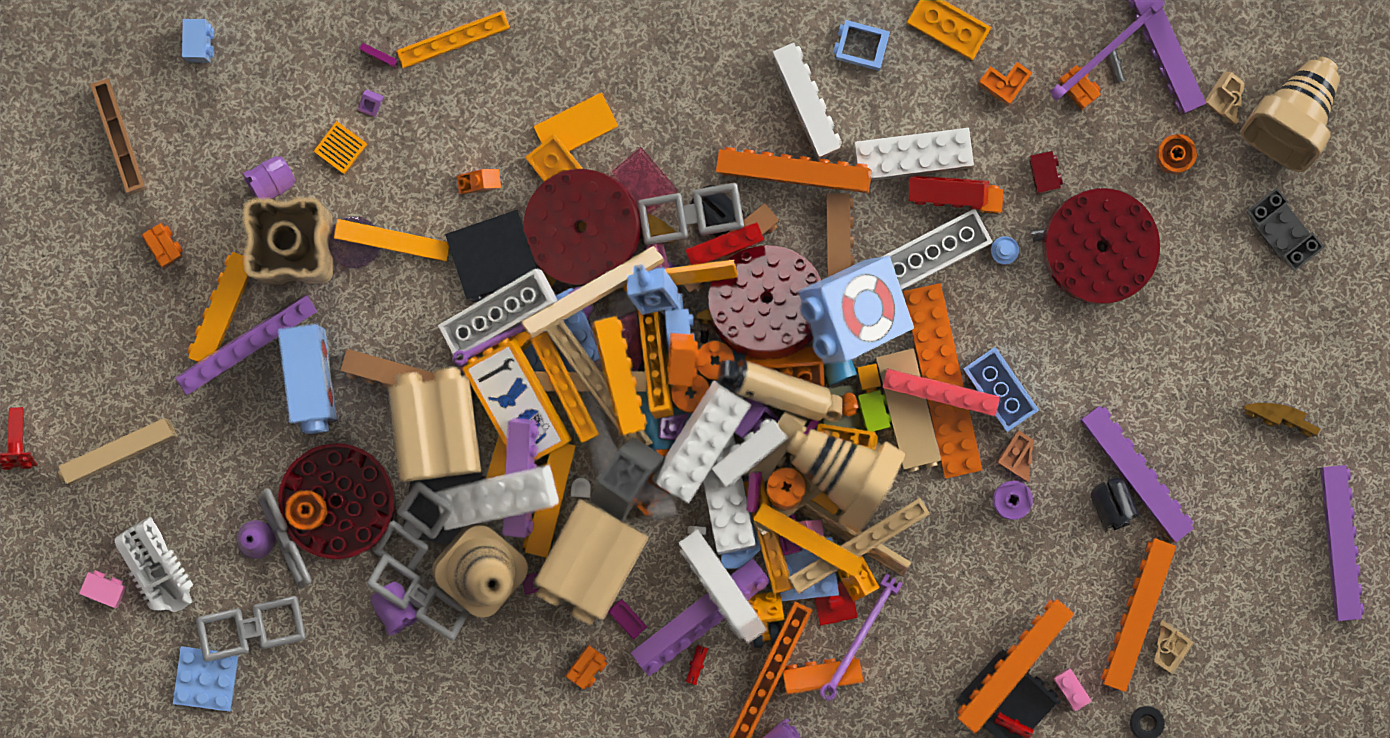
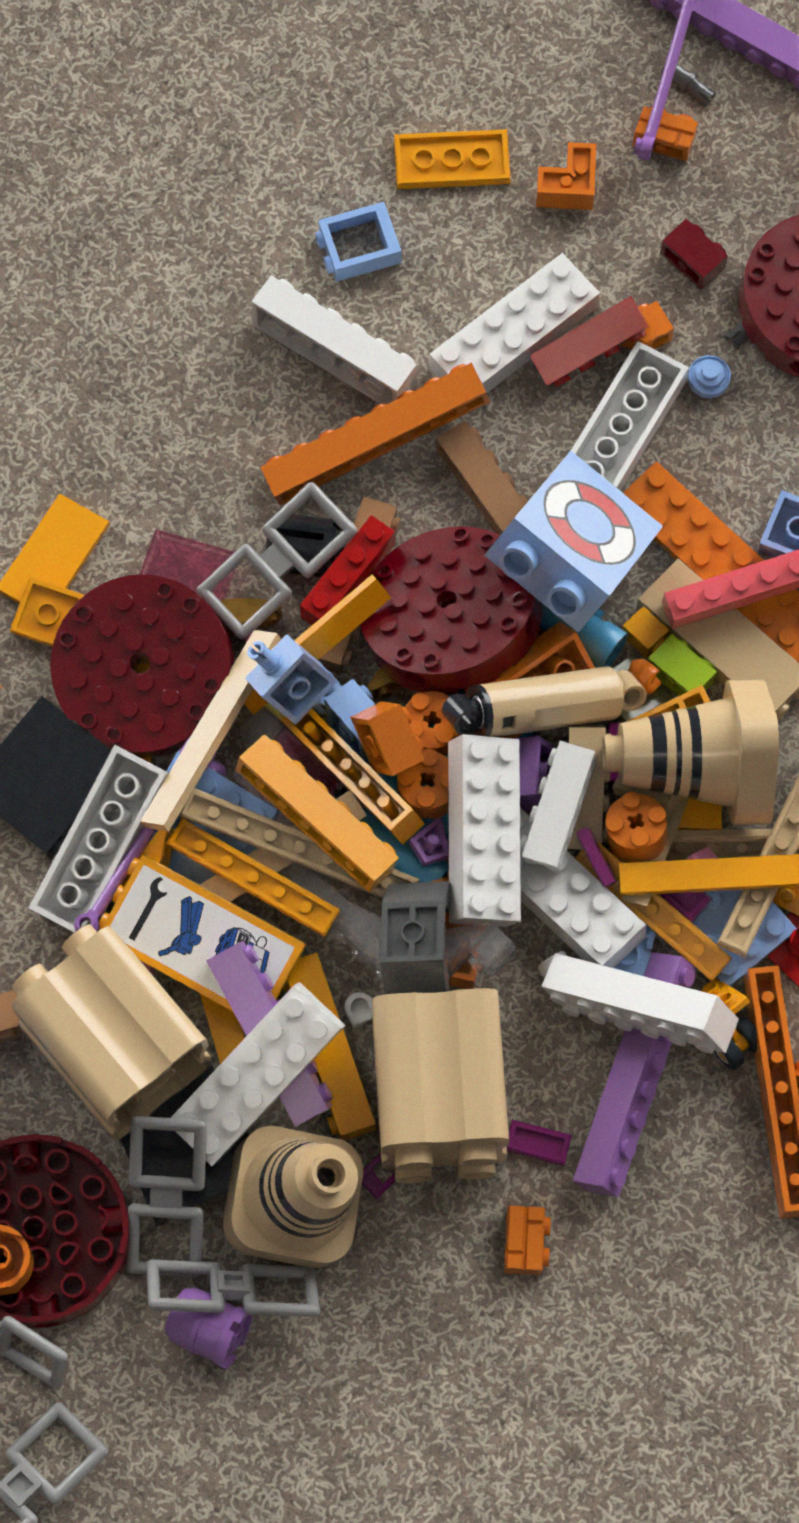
camera: 35 degrees left, 15 degrees down
(696, 664) = (672, 1143): red pin -> none

